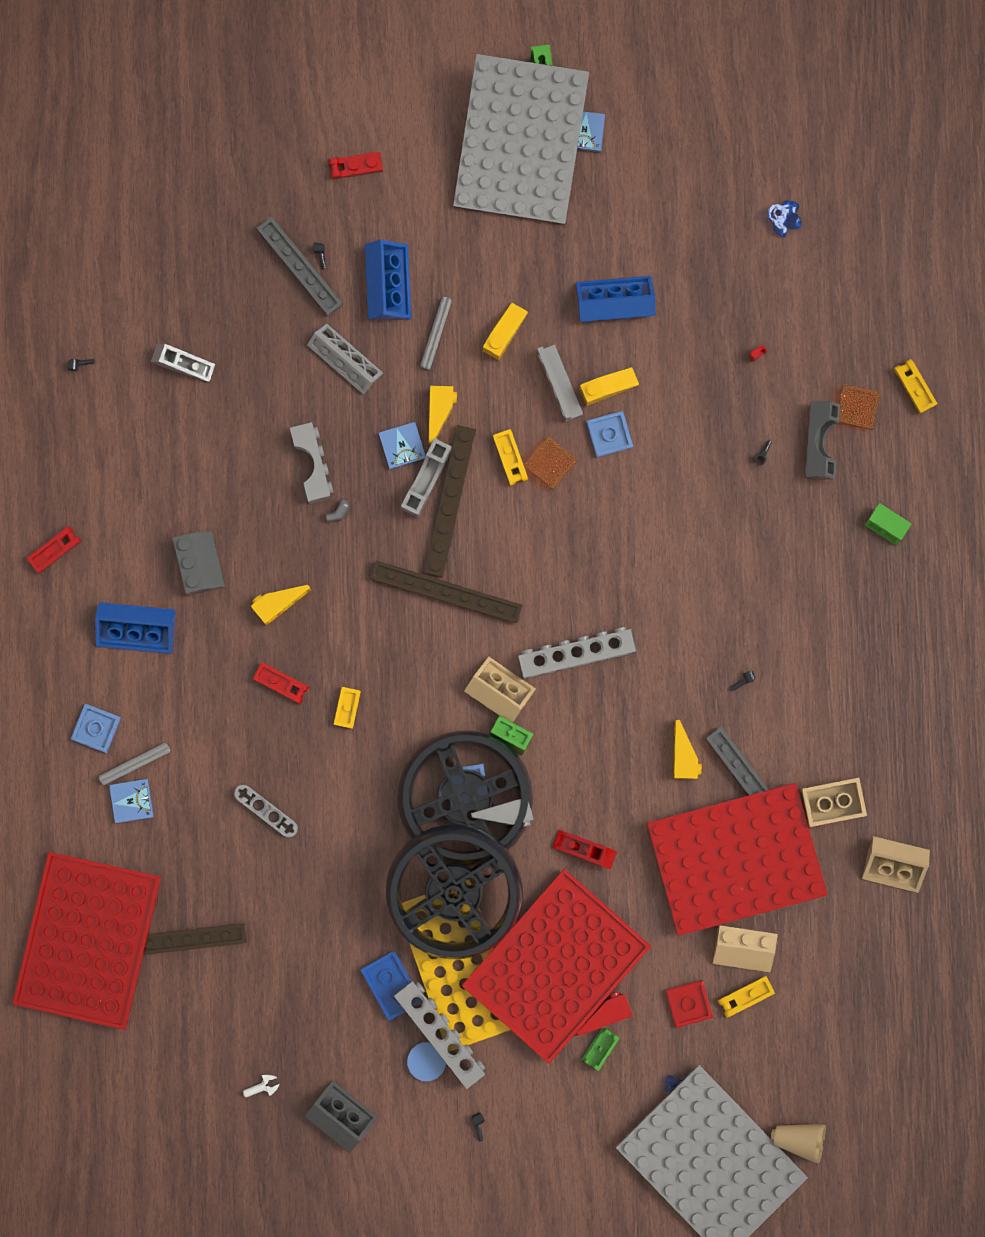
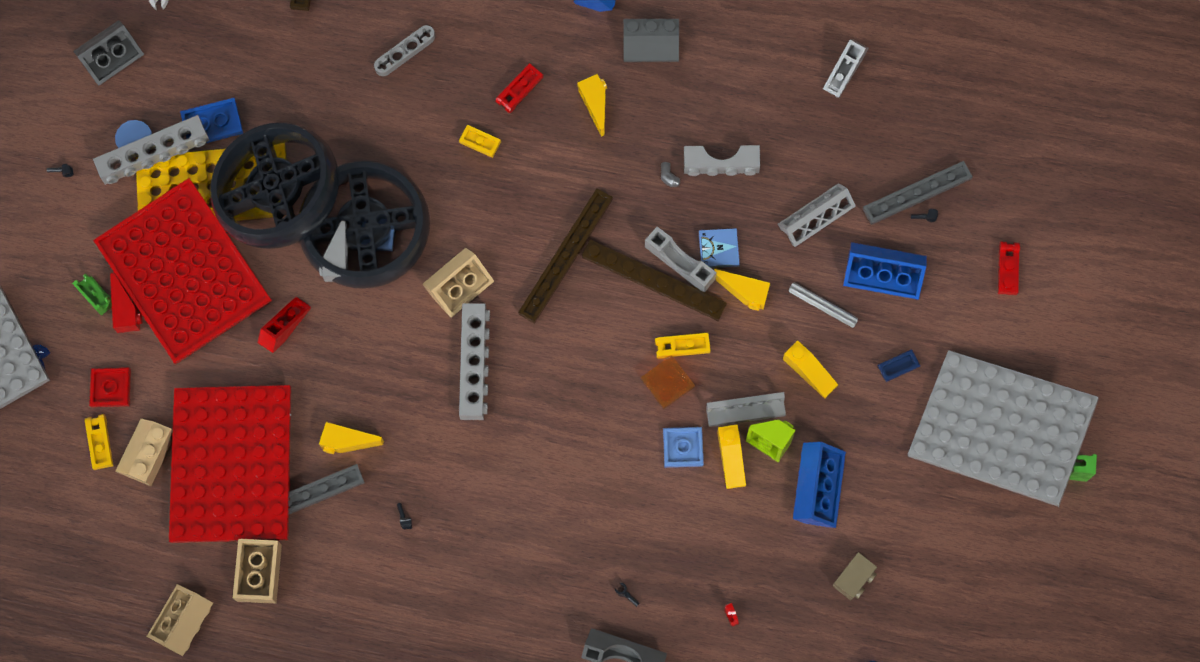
camera: 110 degrees right, 10 degrees down
(479, 249) = (898, 365): none -> dark blue tile
(511, 734) = (411, 280): bright green hinge -> none
(586, 346) = (771, 437): none -> lime slope
(591, 132) = (999, 502): medium blue tile -> none
(694, 247) = (855, 576): none -> dark tan brick

